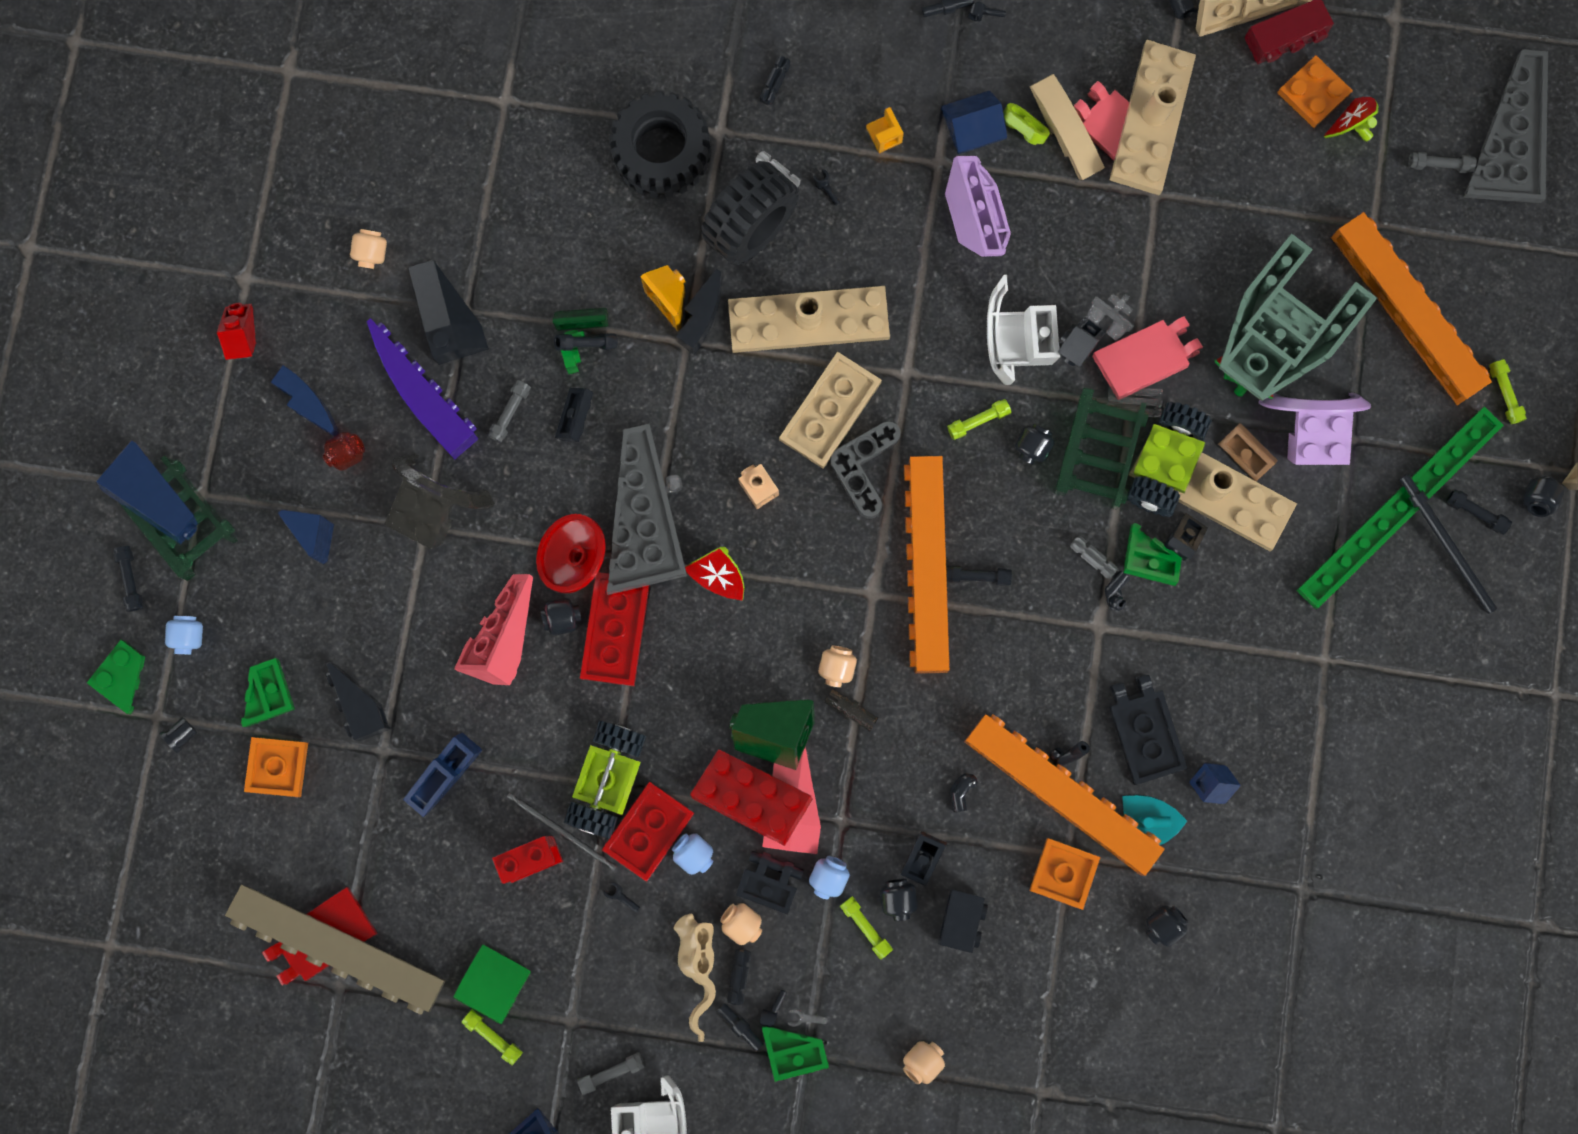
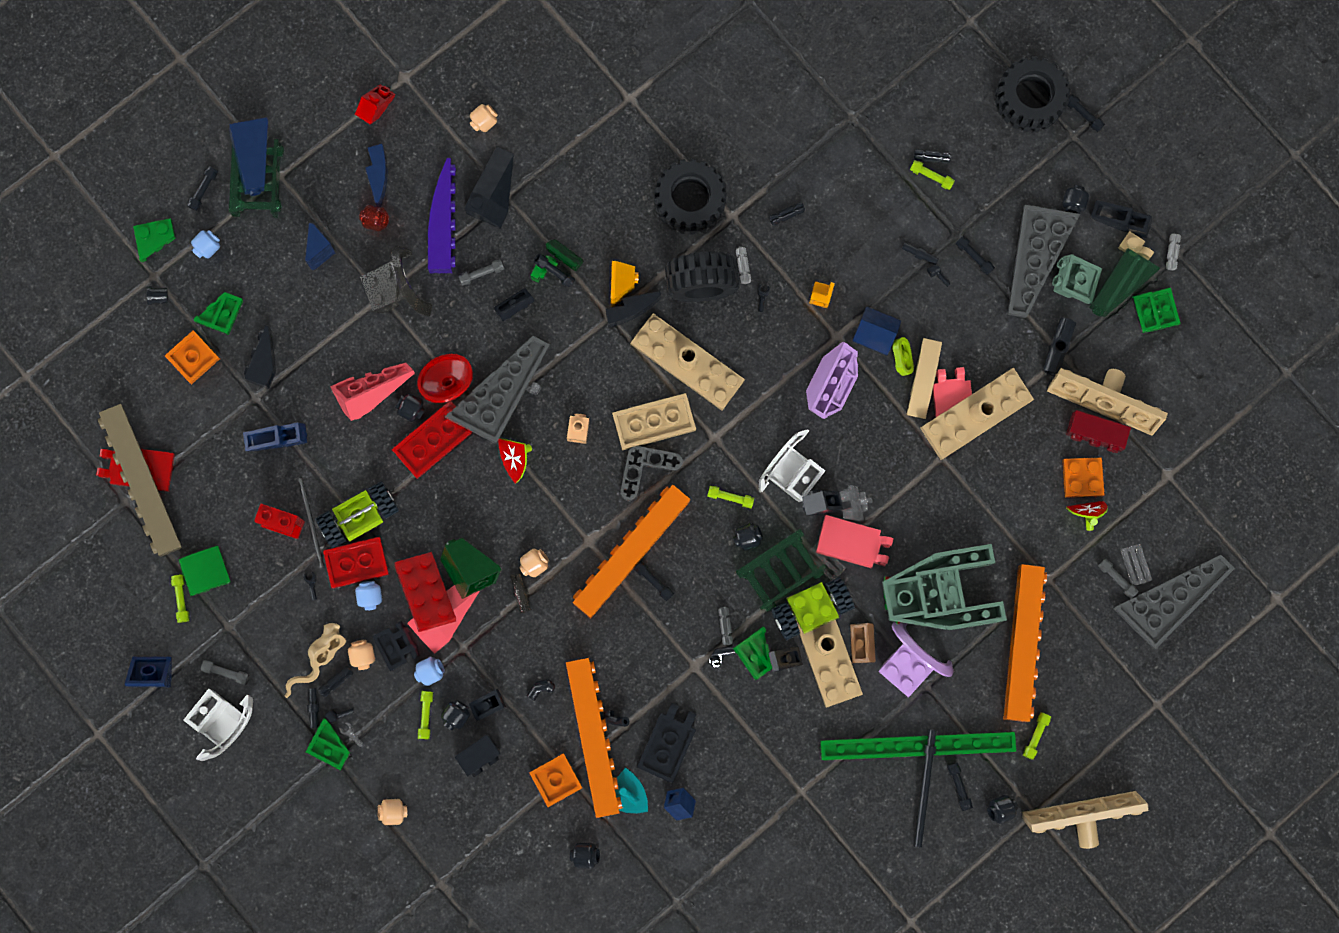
camera: 30 degrees right, 0 degrees up
(1448, 129) = (1143, 563): none -> clear tile

